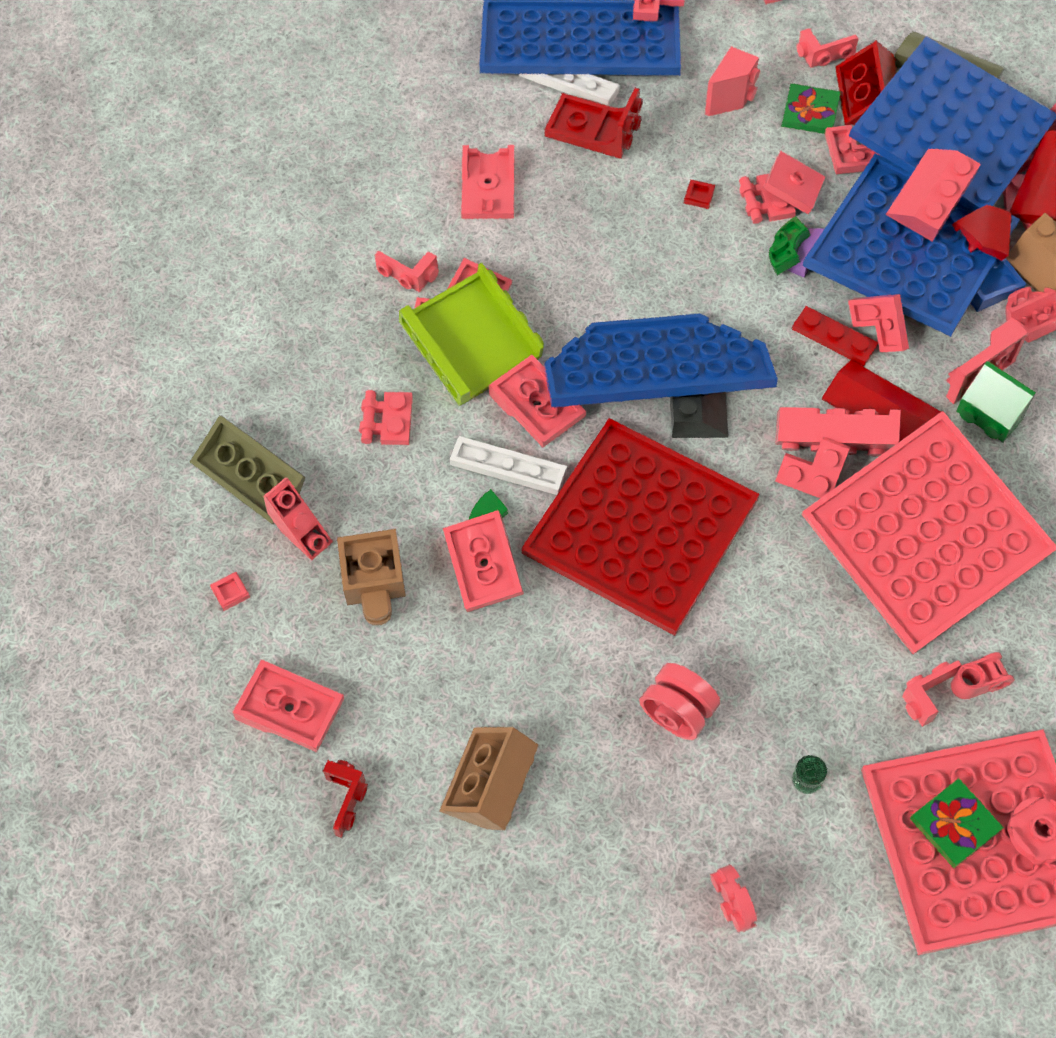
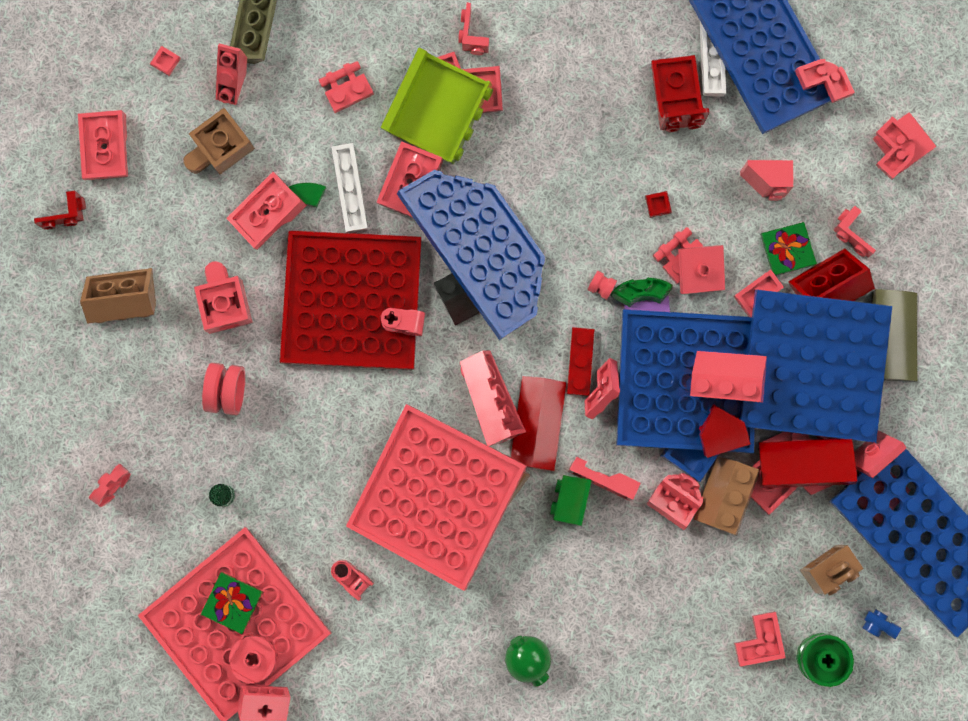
camera: 65 degrees right, 20 degrees up
(491, 199) = (598, 41): coral piece -> none
(565, 645) = (222, 300): none -> coral brick
(701, 474) = (408, 321): none -> coral piece
(761, 276) = (602, 285): none -> coral wheel
(815, 477) = (448, 401): coral plate -> none
(918, 703) = (306, 545): coral bracket -> none

